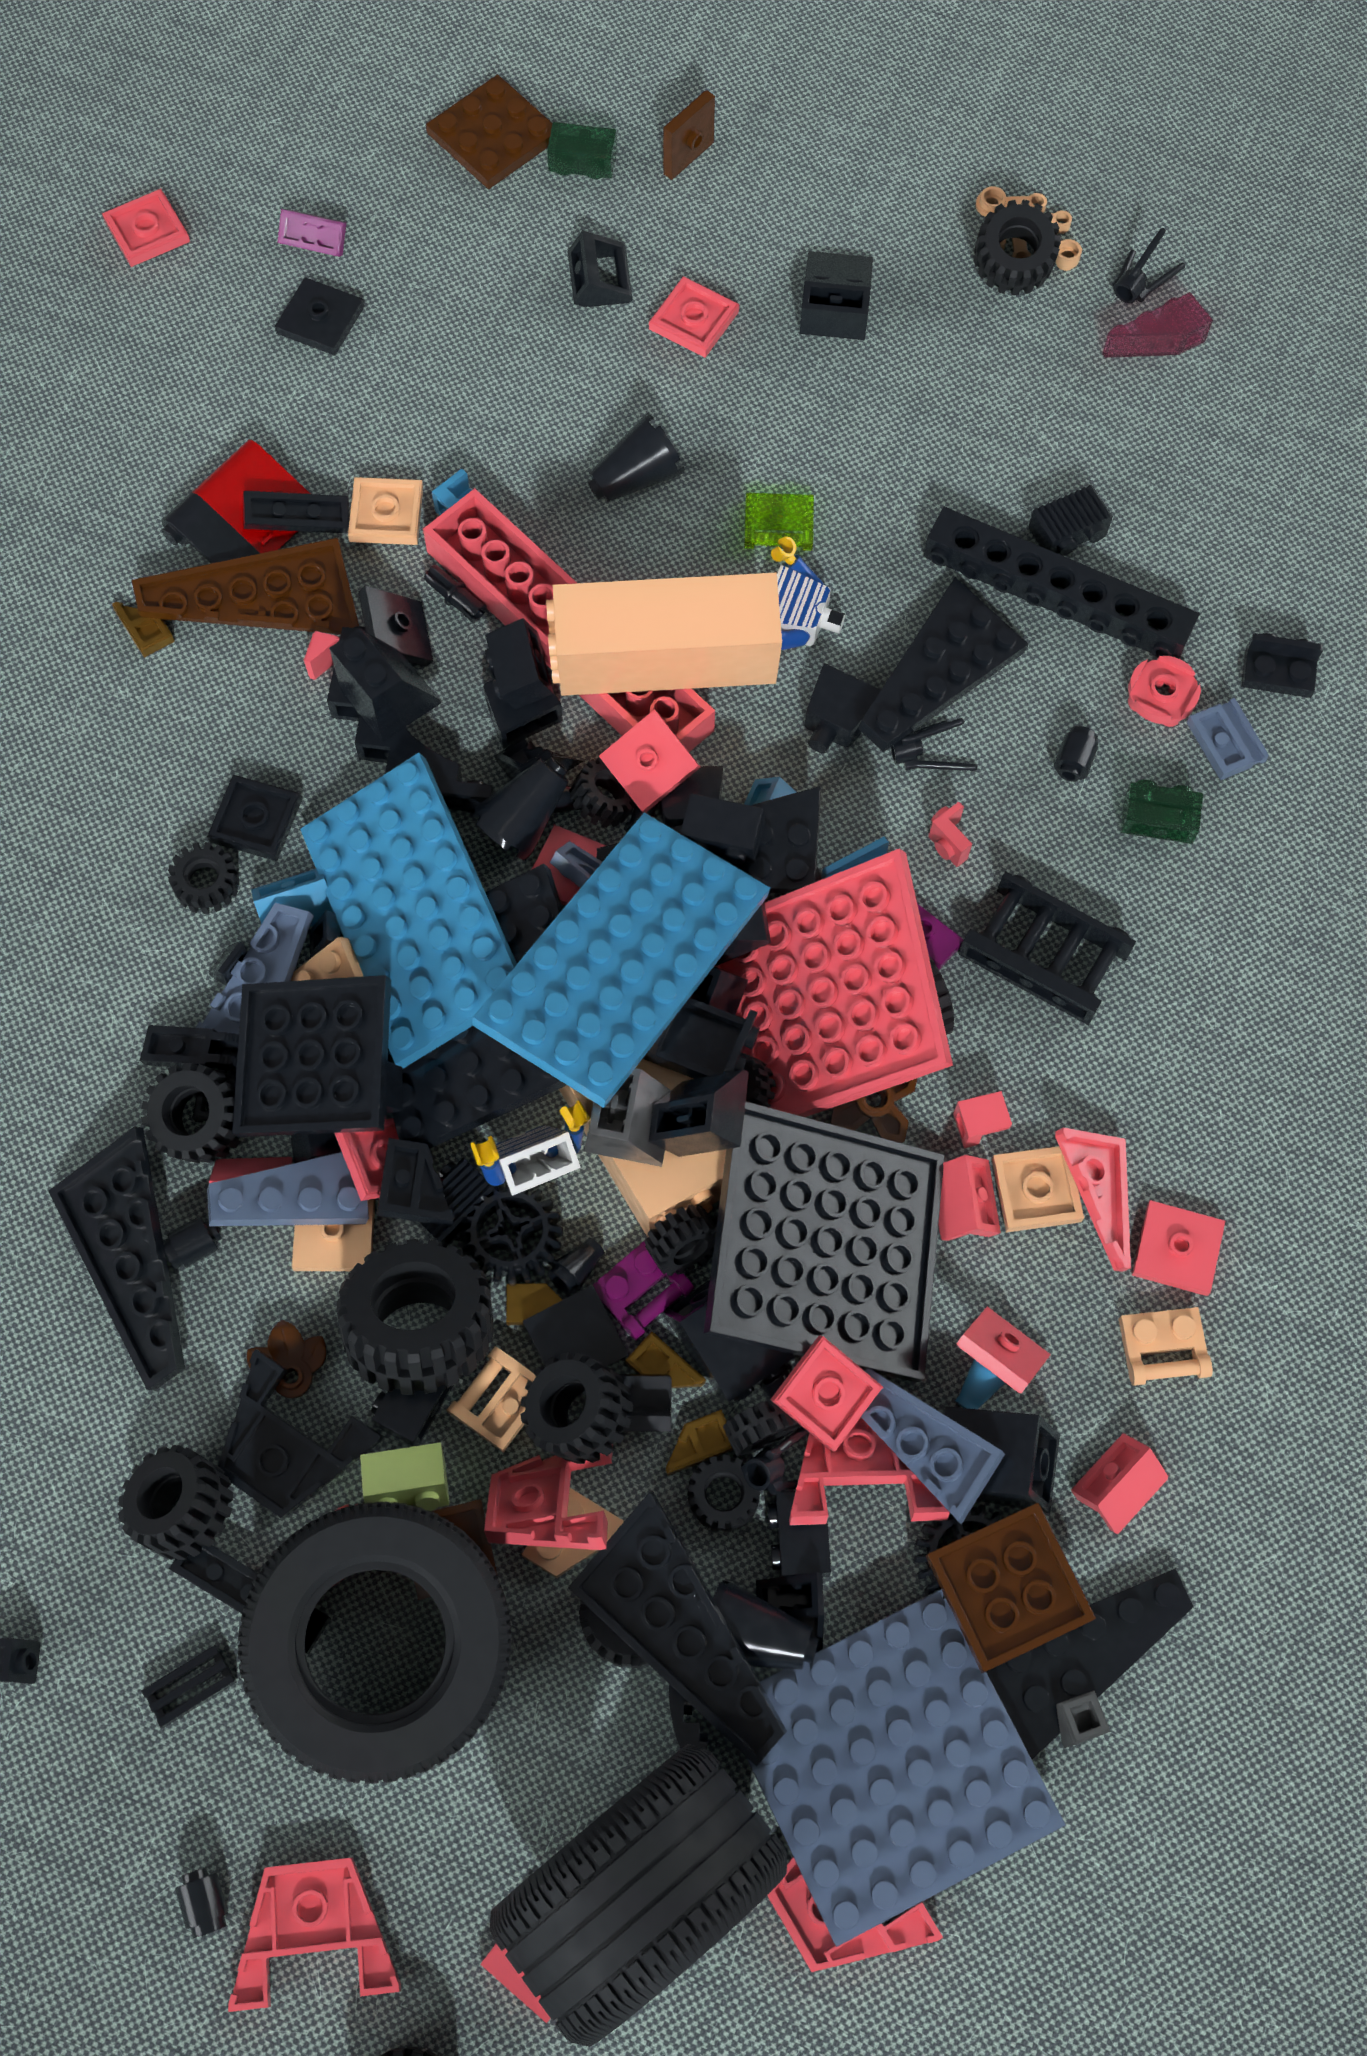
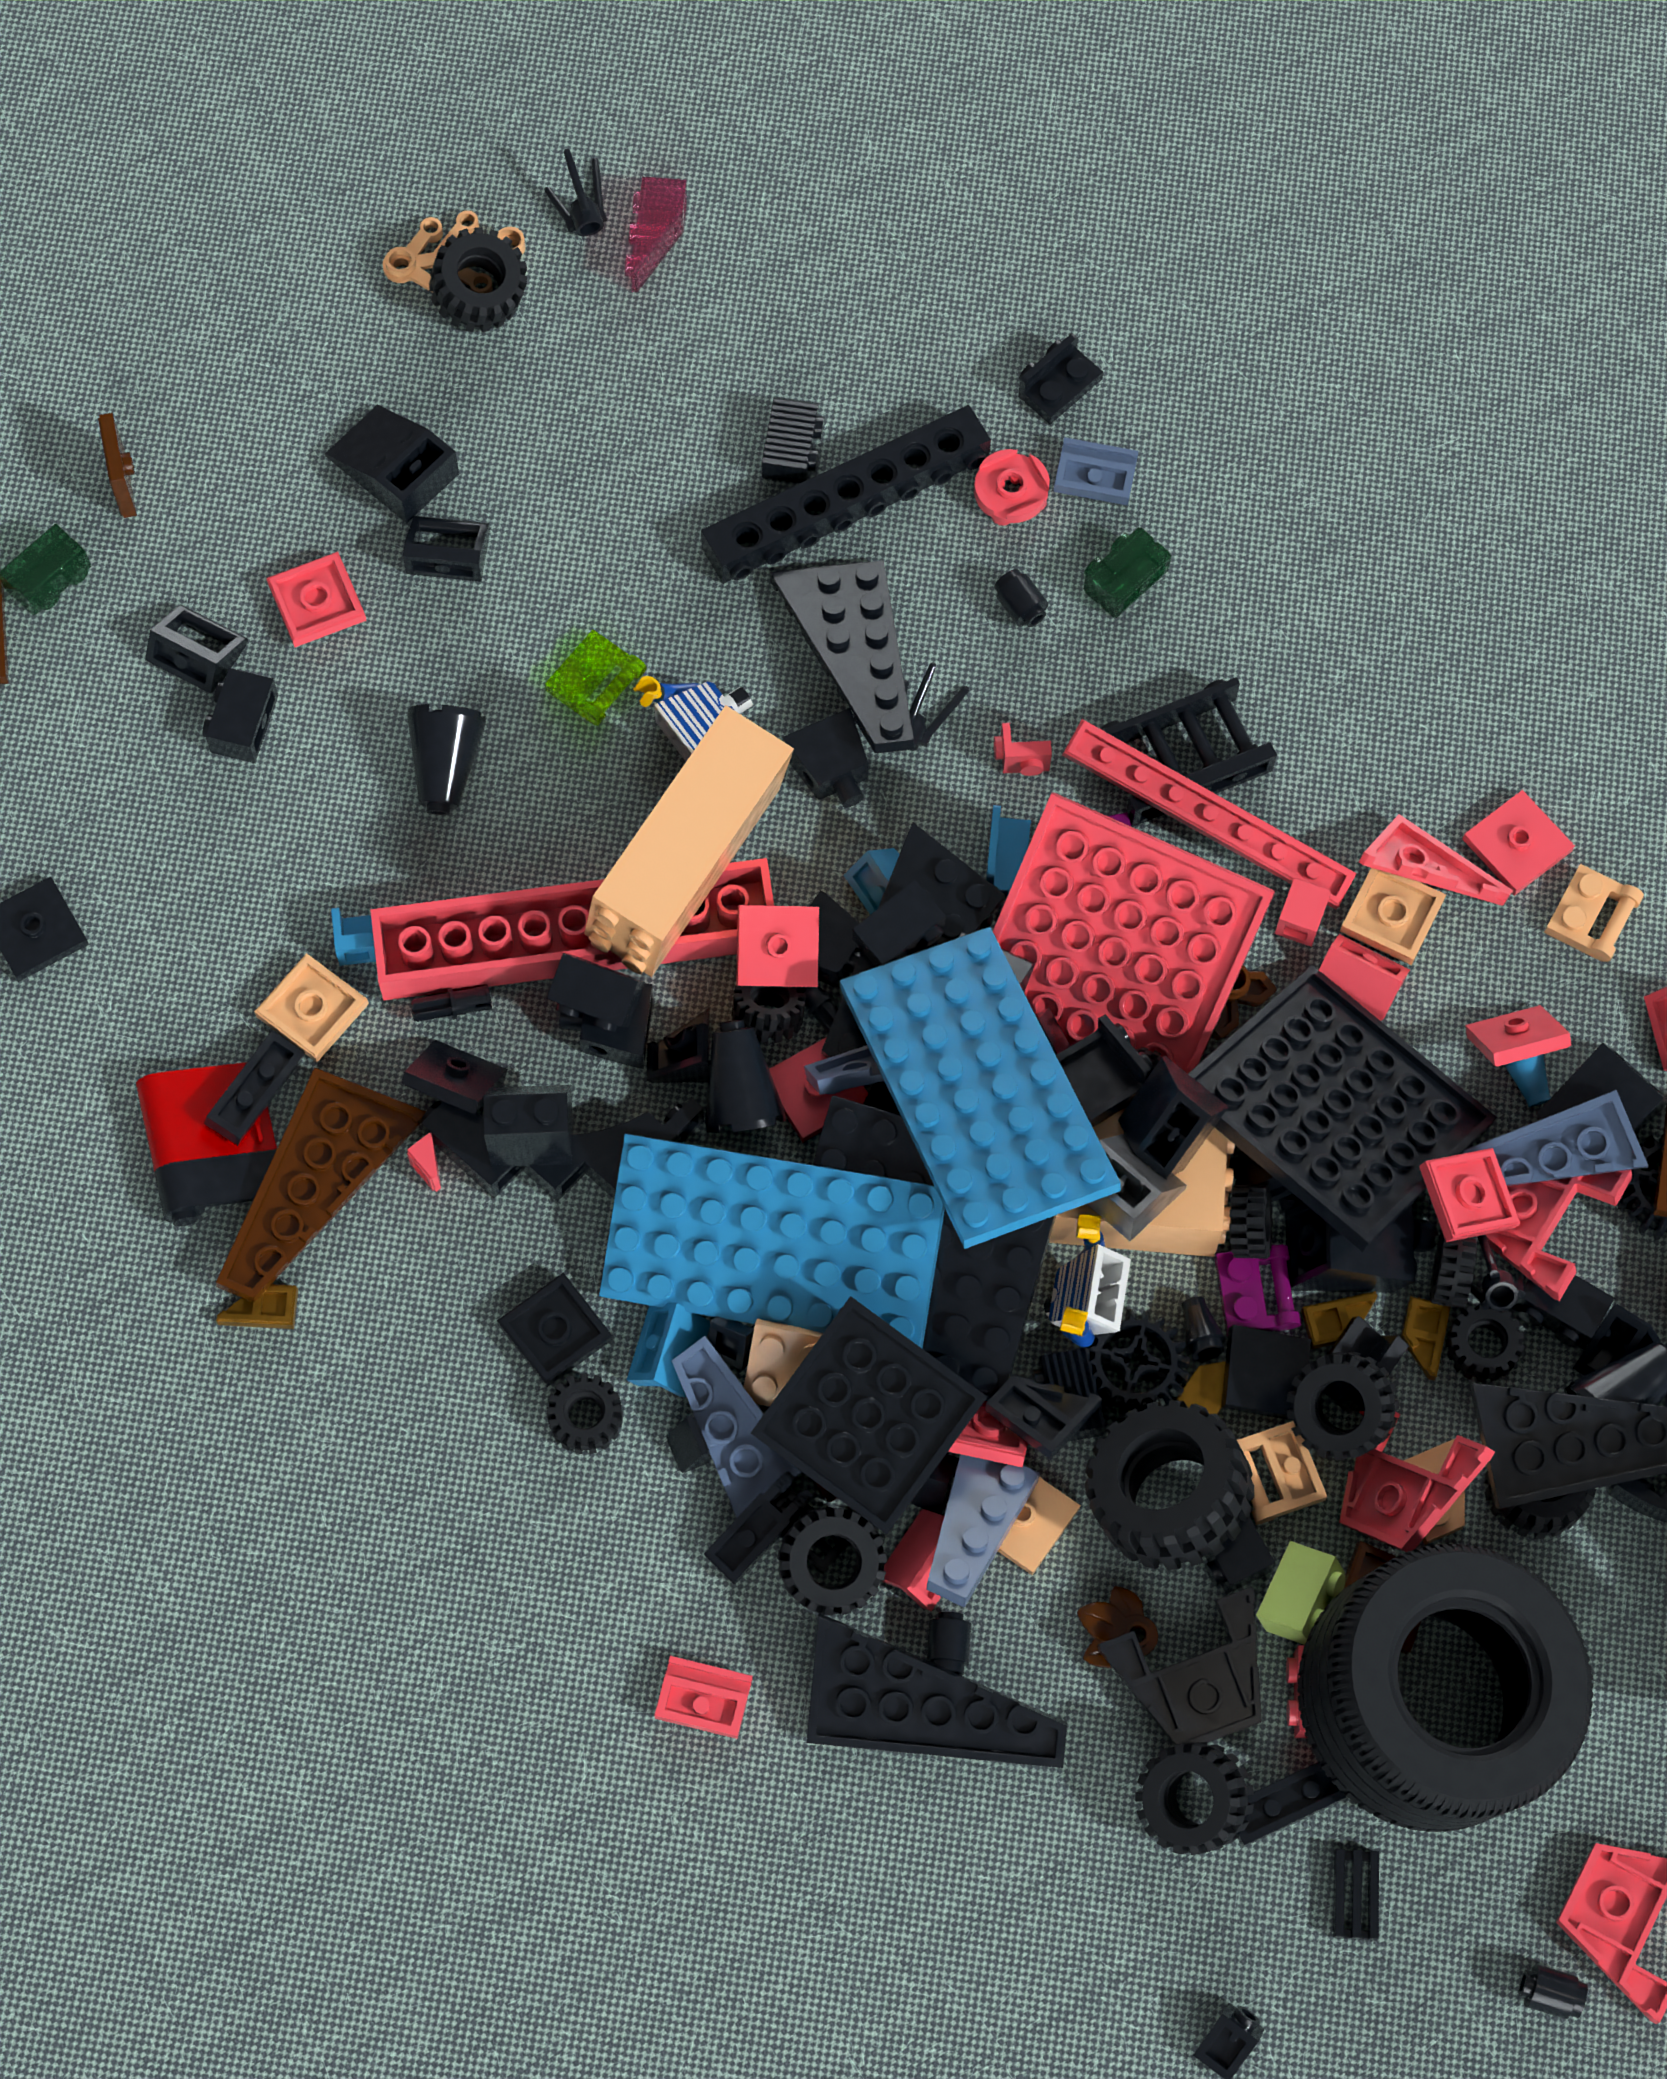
camera: 55 degrees left, 0 degrees up
(38, 1097) = (703, 1697): none -> coral plate
(569, 328) = (240, 715): none -> black brick
(788, 374) = (441, 560): none -> black tile
(1004, 995) = (1205, 811): none -> coral tile

